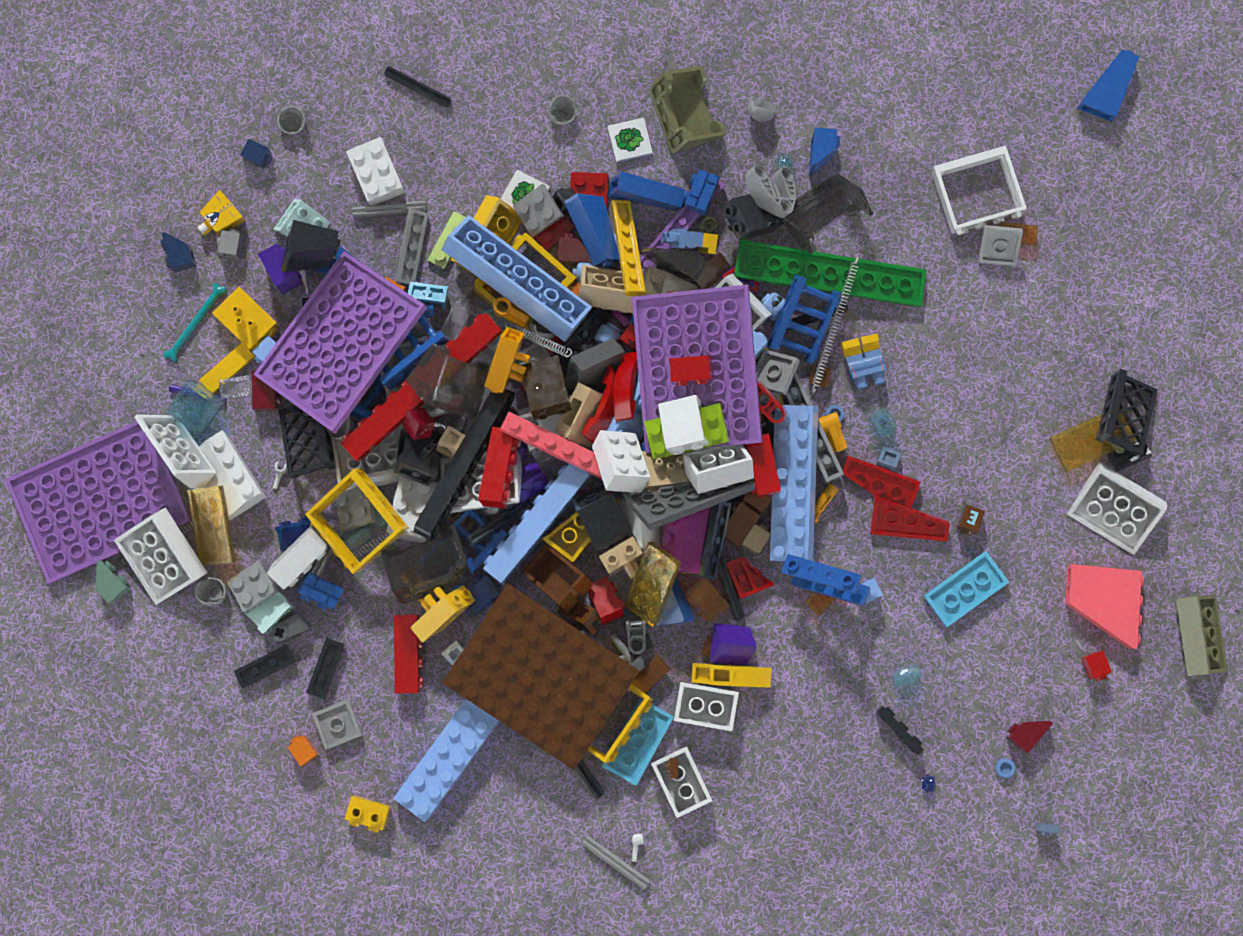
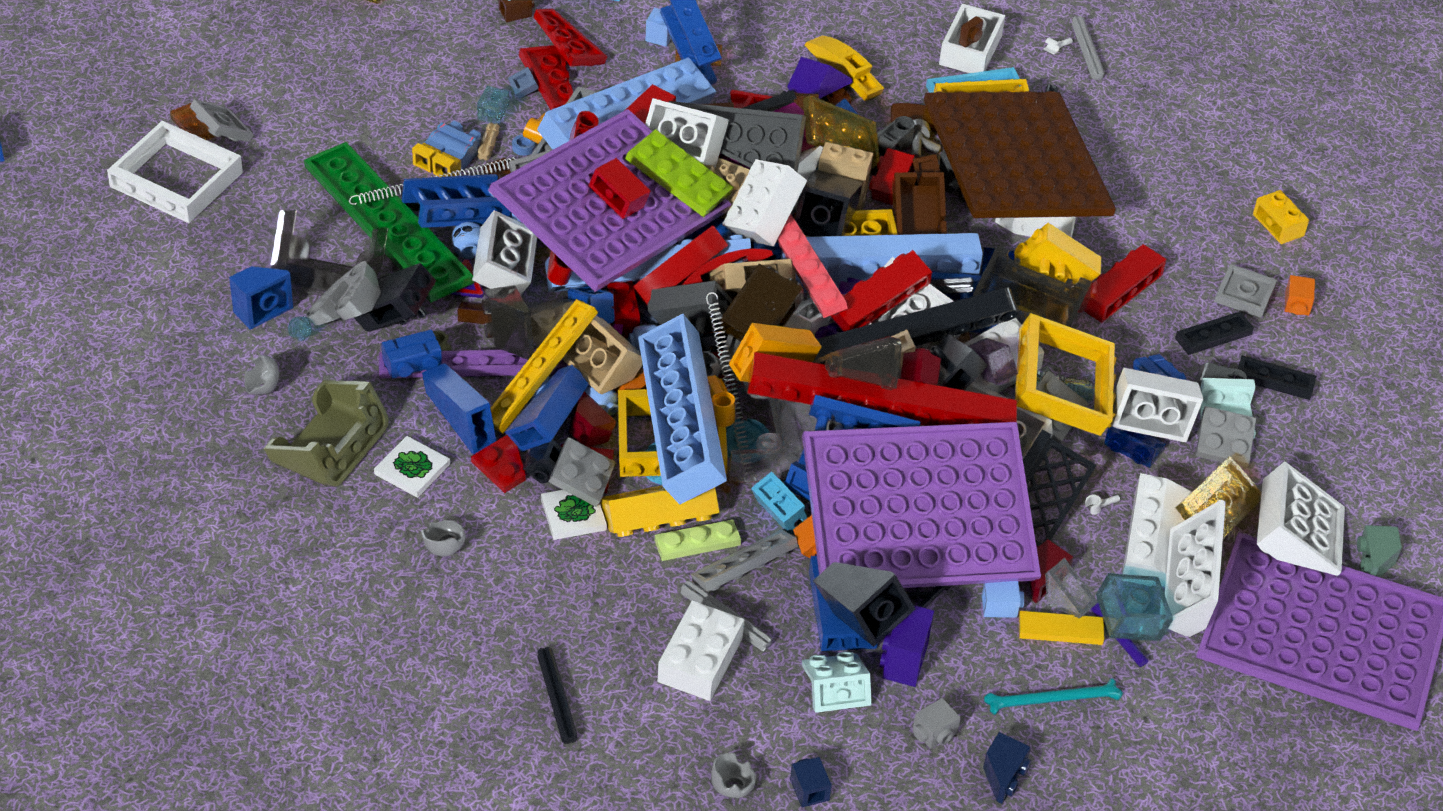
camera: 140 degrees left, 35 degrees down
(204, 589) = (1271, 457): light grey hair -> none
(219, 215) = (918, 759): yellow torso -> none
(246, 319) = (994, 645): yellow piece -> none
(402, 487) = (998, 358): none -> clear purple slope
(446, 760) = (1171, 195): light blue brick -> none
(682, 239) = (477, 324): medium blue hips -> none
(682, 425) = (677, 165): white panel -> none
(706, 706) = (894, 61): white brick -> none
(855, 395) = (488, 141): none -> tan axle

